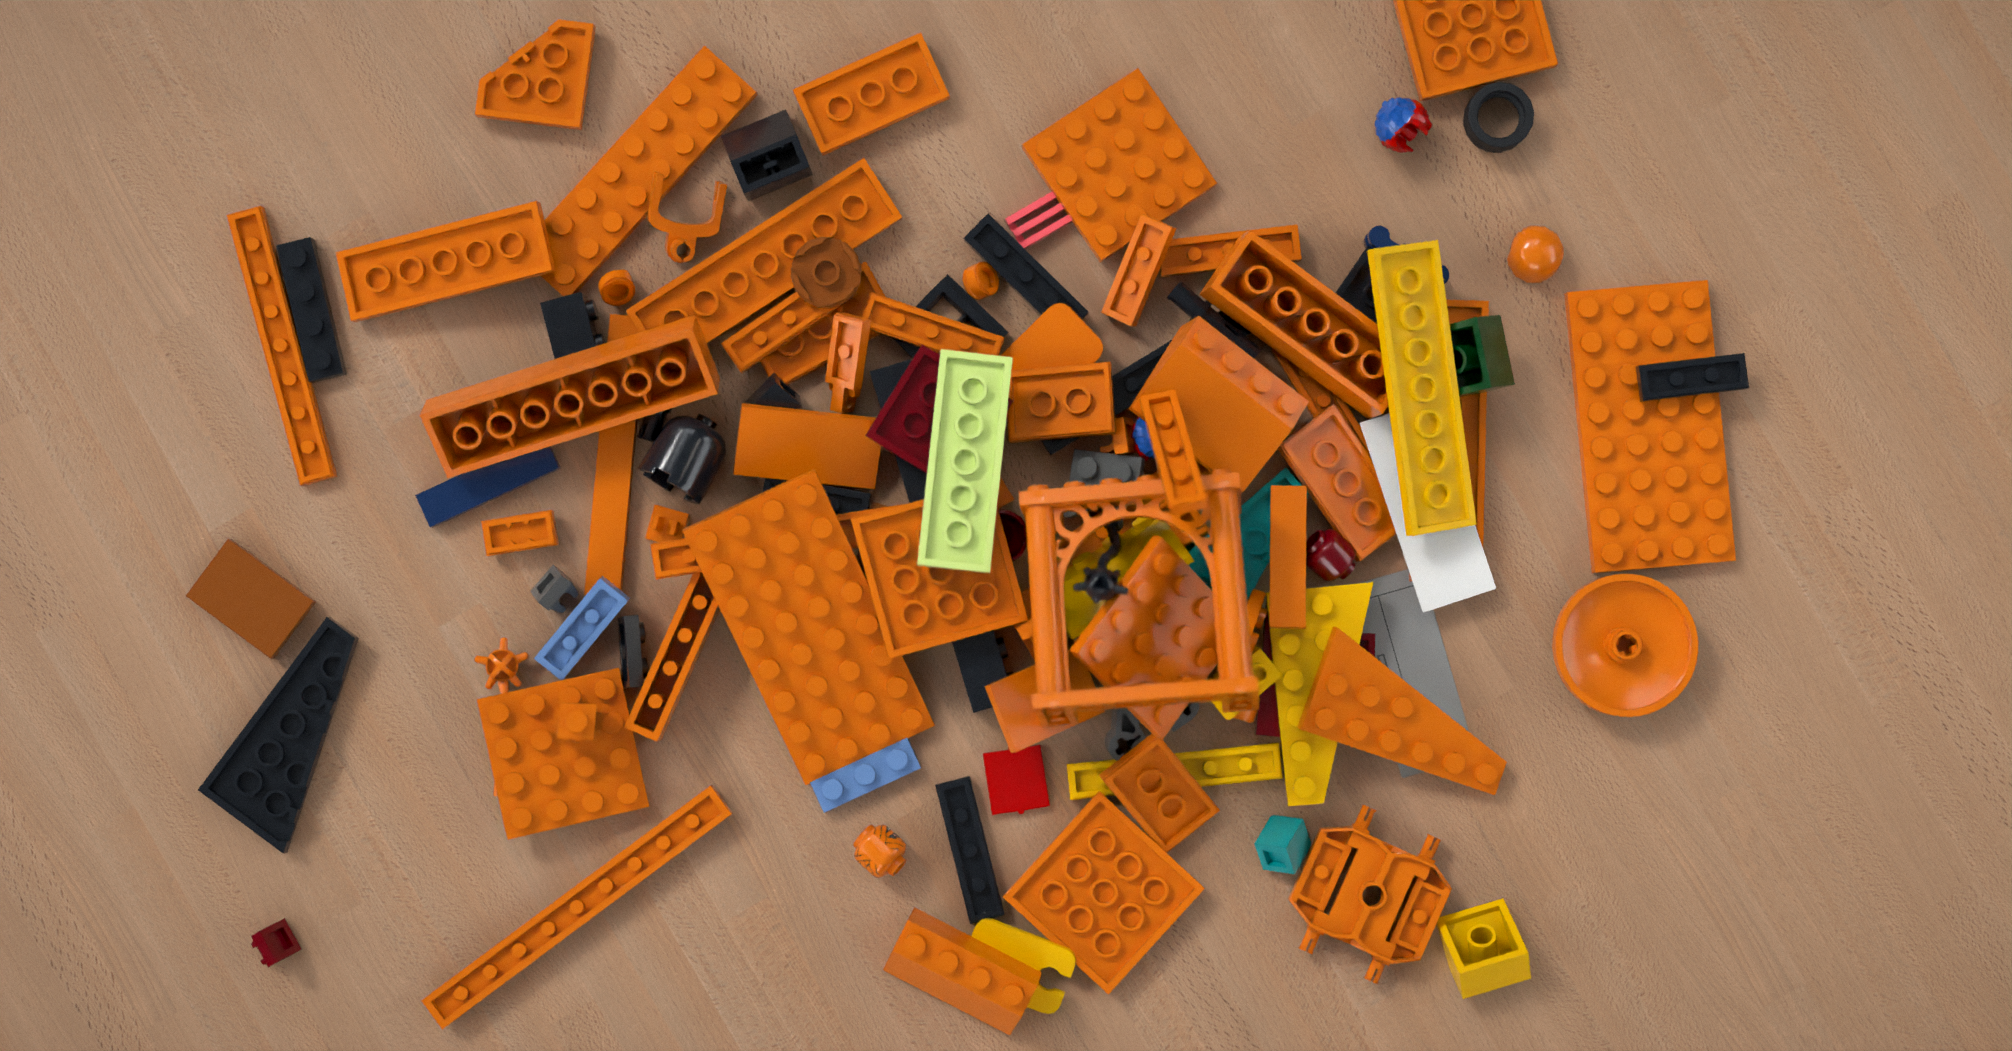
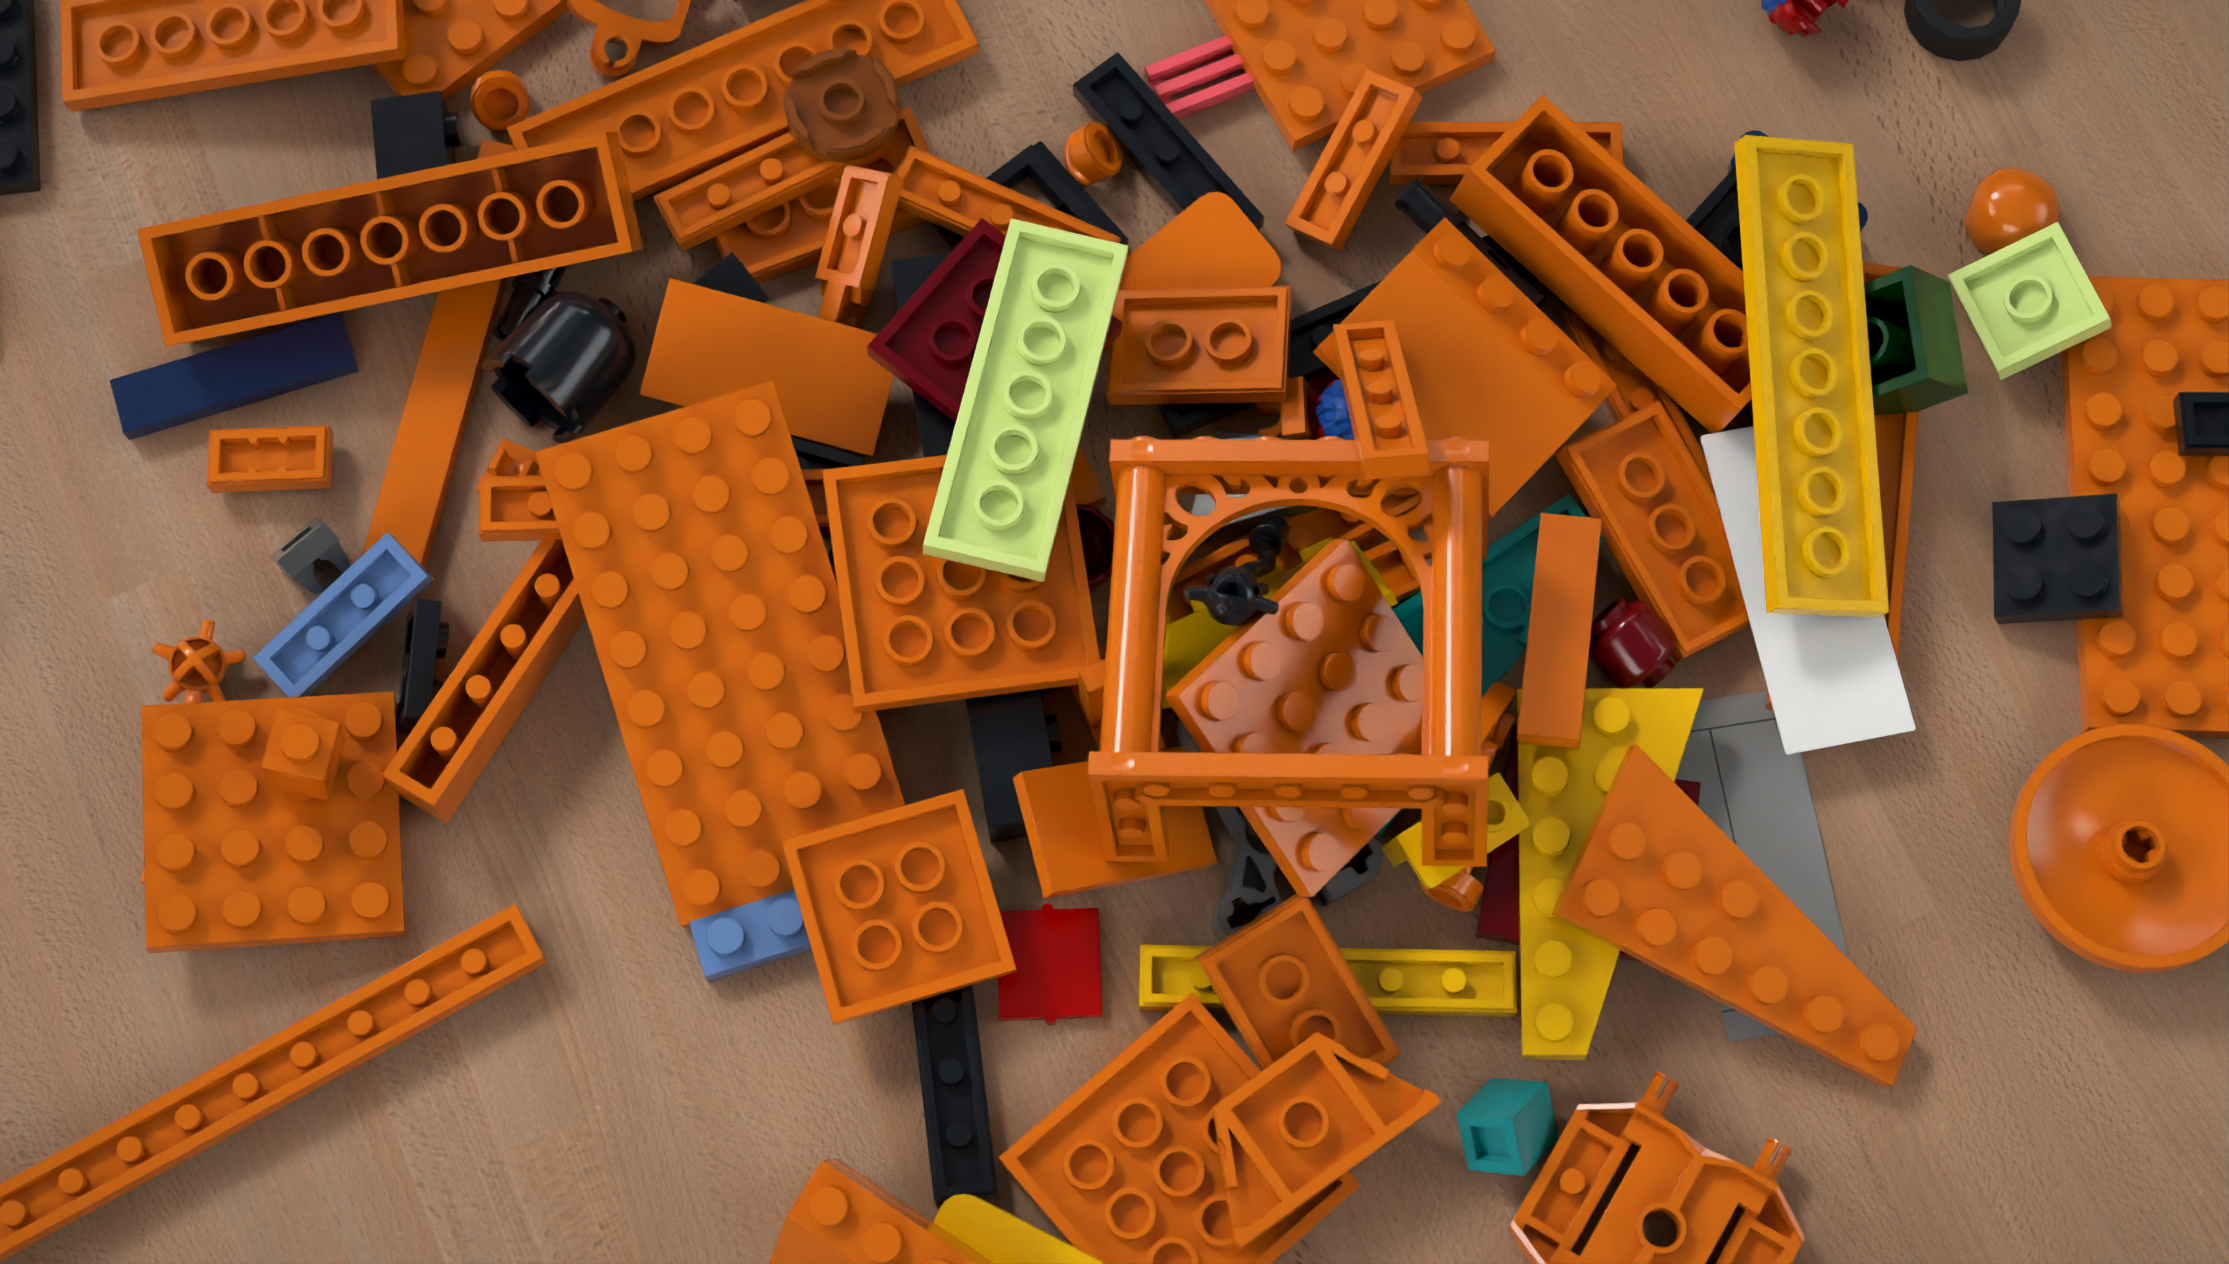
camera: 10 degrees right, 15 degrees down
(880, 851) = (793, 1052): orange head -> none
(928, 765) = (898, 907): none -> orange plate
(1172, 864) = (1306, 1128): none -> orange wing
(1548, 314) = (2029, 301): none -> yellowish green plate
(1572, 474) = (2057, 559): none -> black plate

